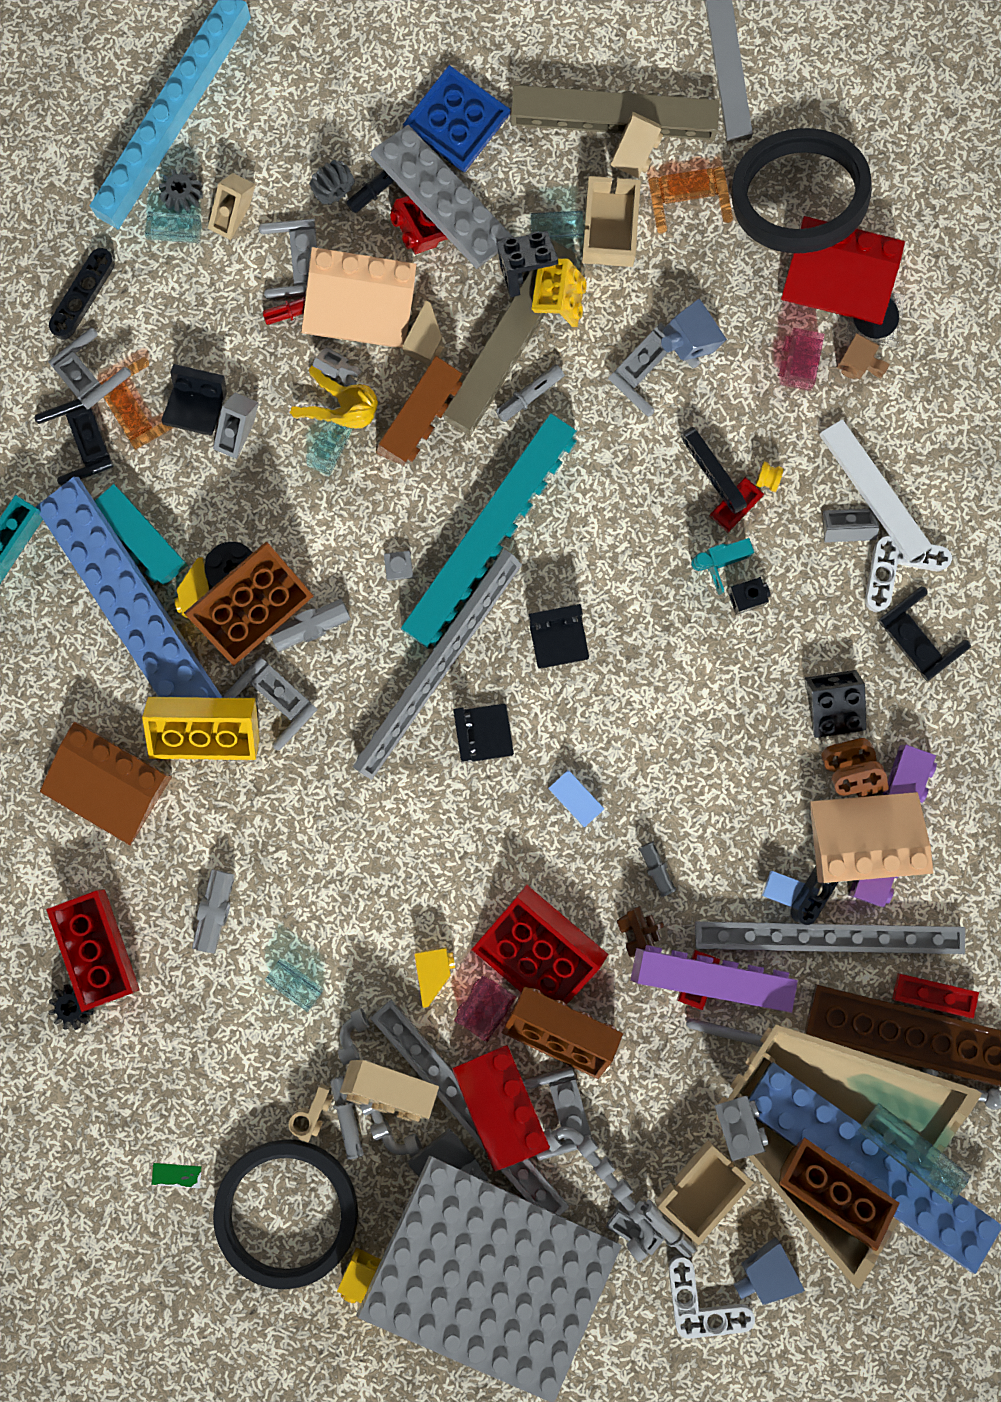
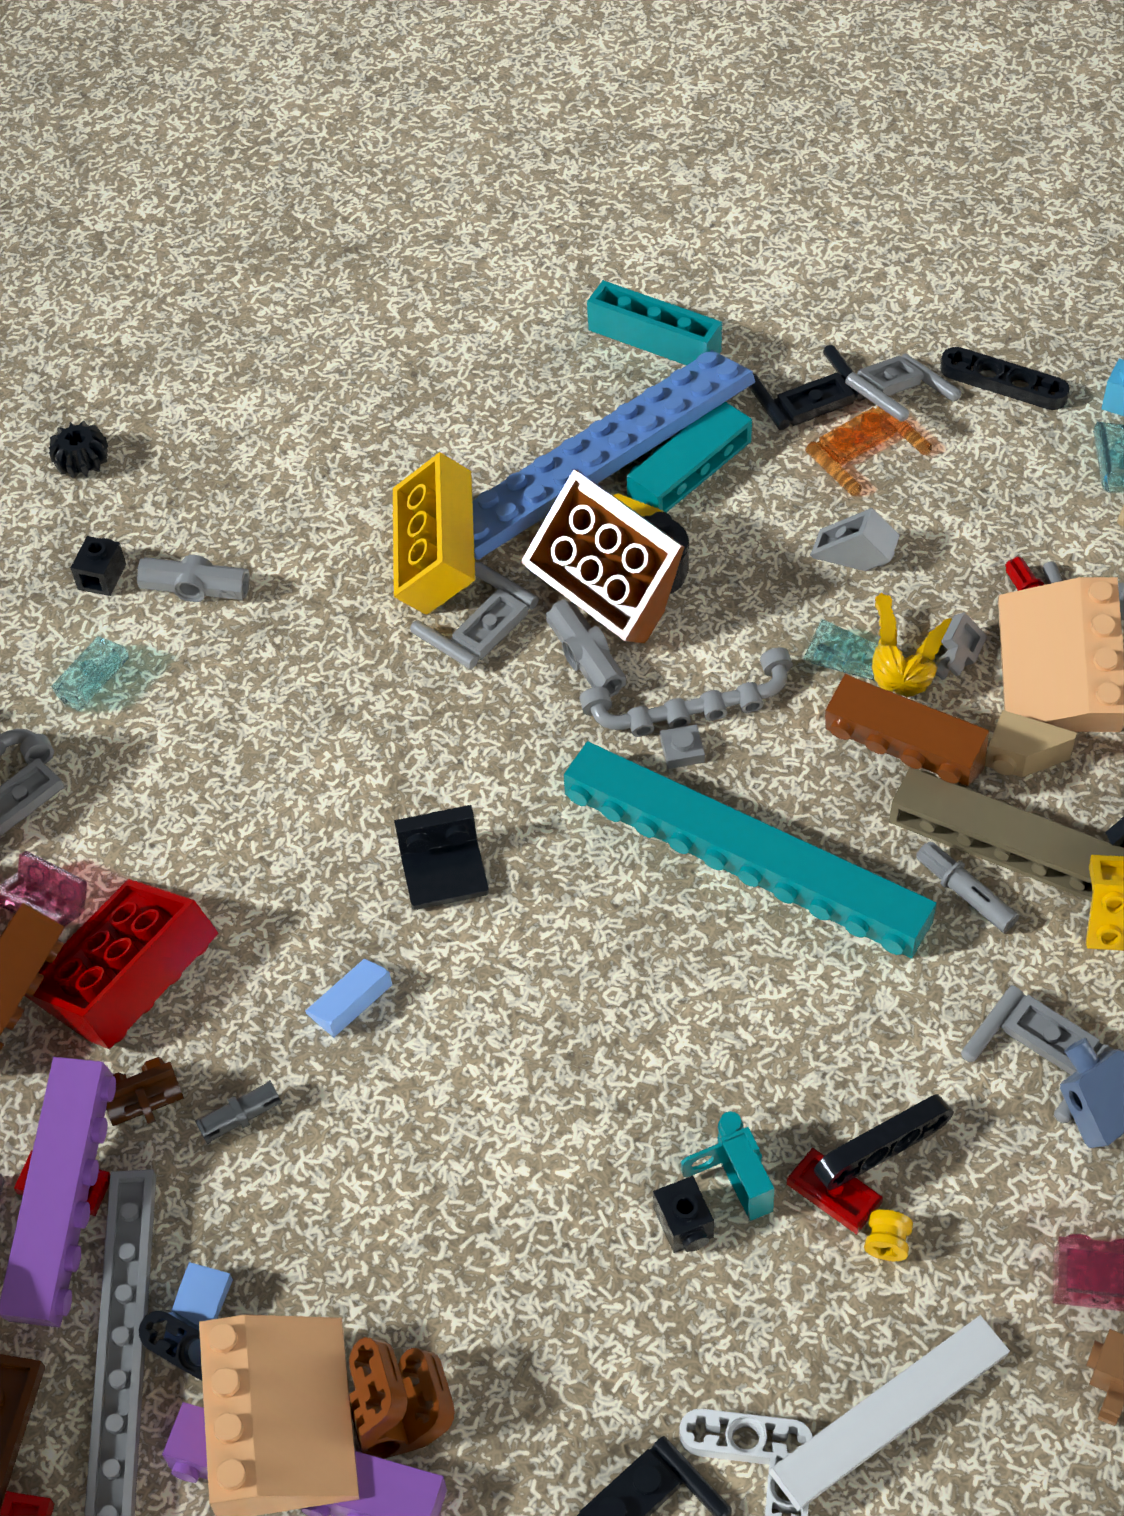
camera: 90 degrees right, 30 degrees down
(93, 949) = (147, 457): red slope -> none
(104, 783) = (365, 456): dark orange slope -> none
(193, 983) = (98, 565): none -> black brick
(194, 400) = (891, 496): black bracket -> none
(367, 542) = (676, 711): none -> light grey bar
(433, 971) = (94, 827): yellow slope -> none
(437, 665) = (545, 801): light grey plate -> none
(558, 636) = (595, 950): black bracket -> none
(837, 703) = (513, 1367): black bracket -> none
(850, 525) = (824, 1377): light grey slope -> none

